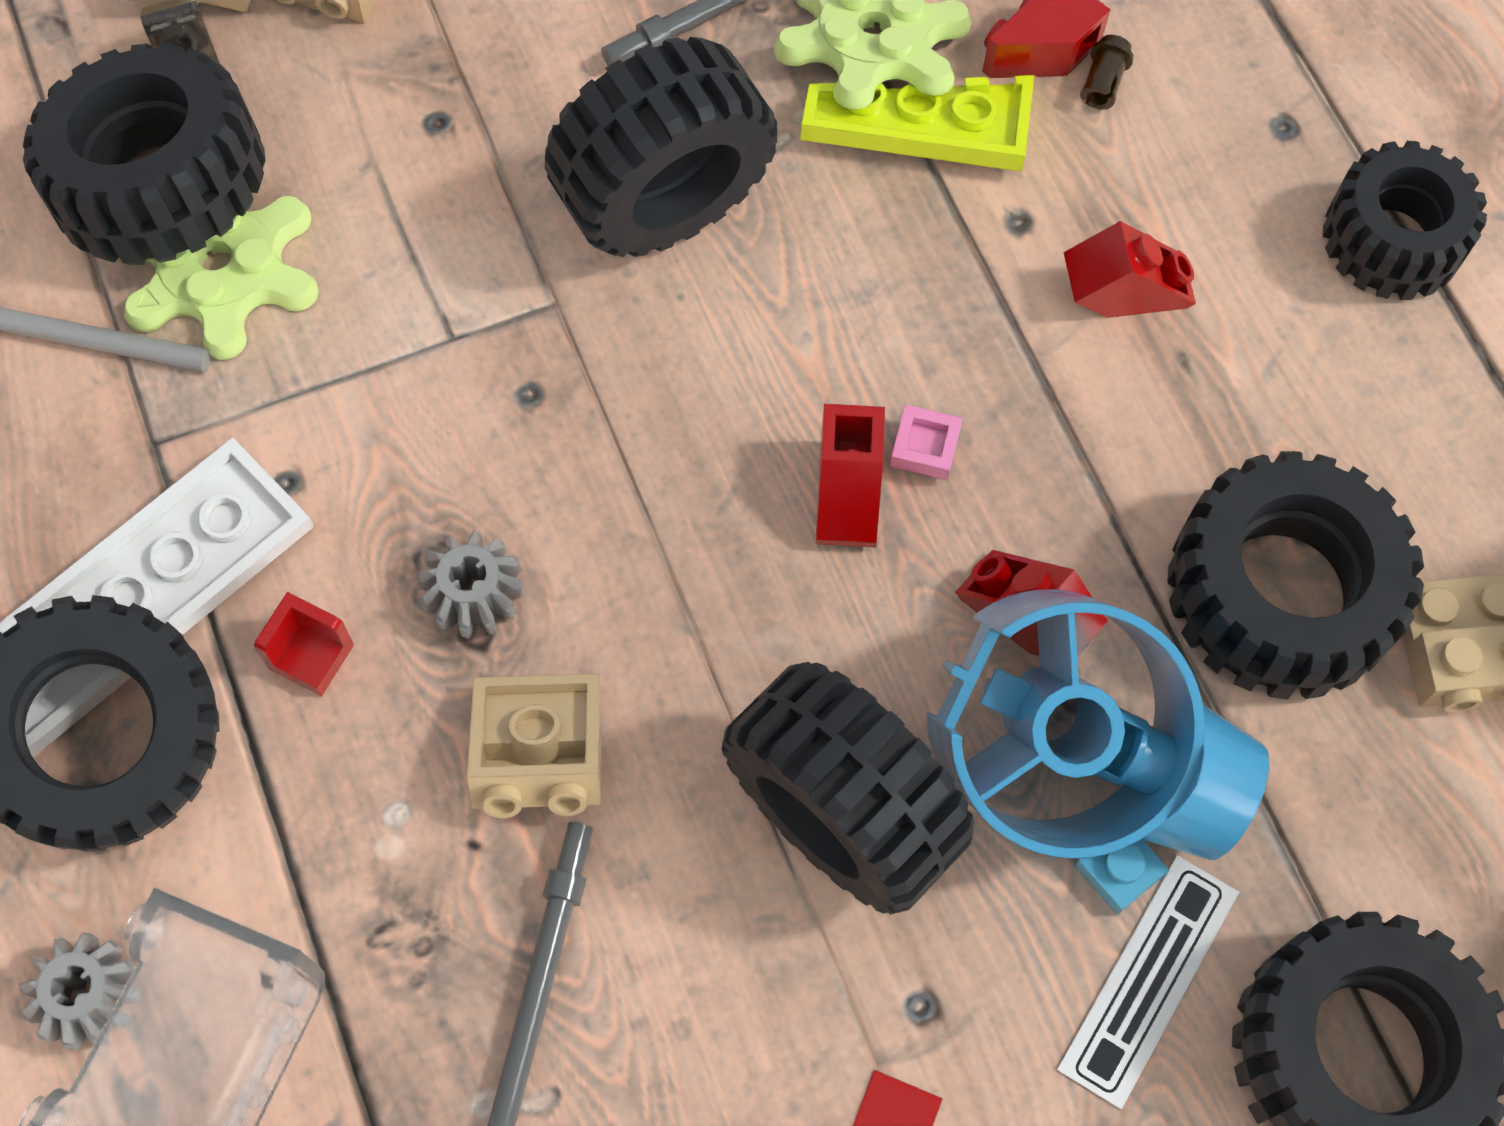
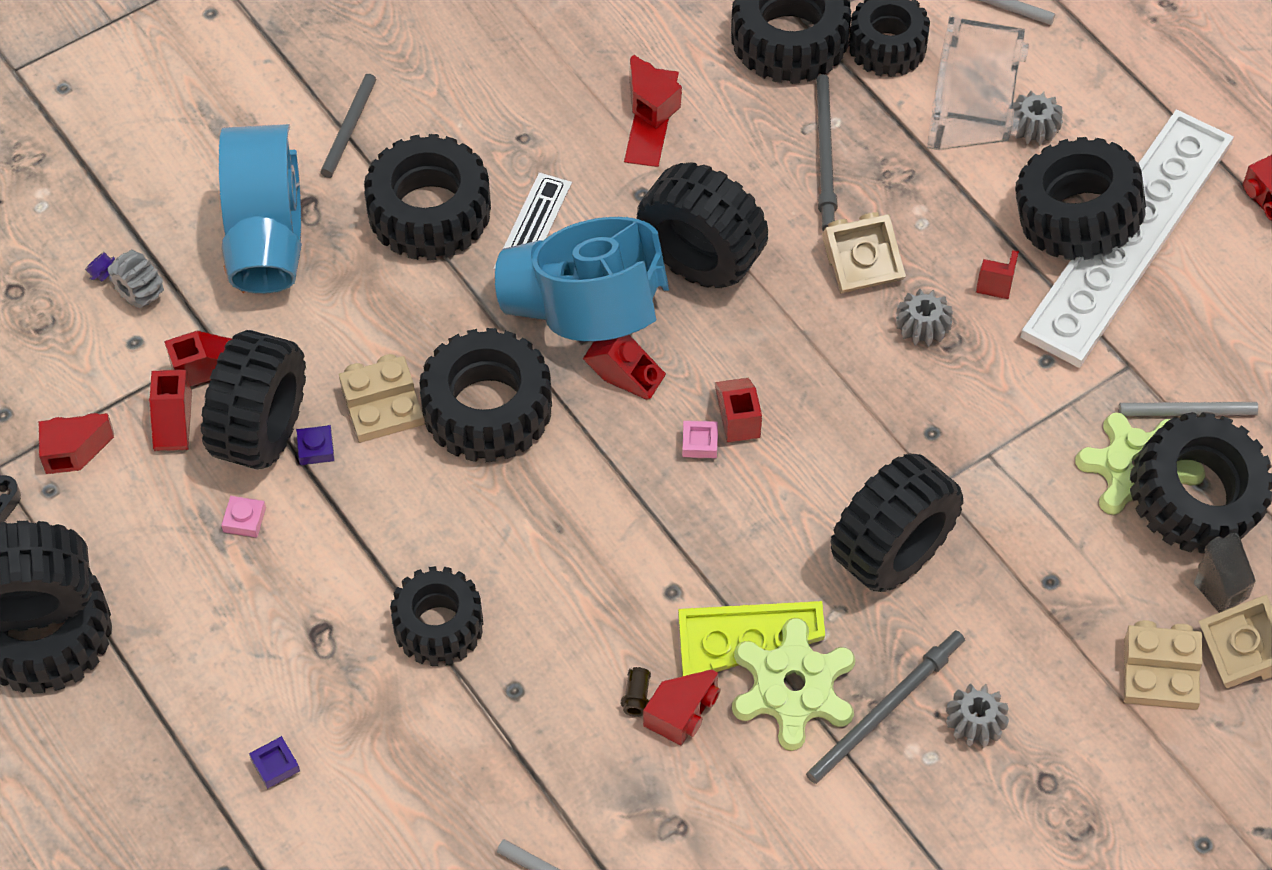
camera: 170 degrees right, 10 degrees down
(1128, 273) = (600, 553): red slope -> none

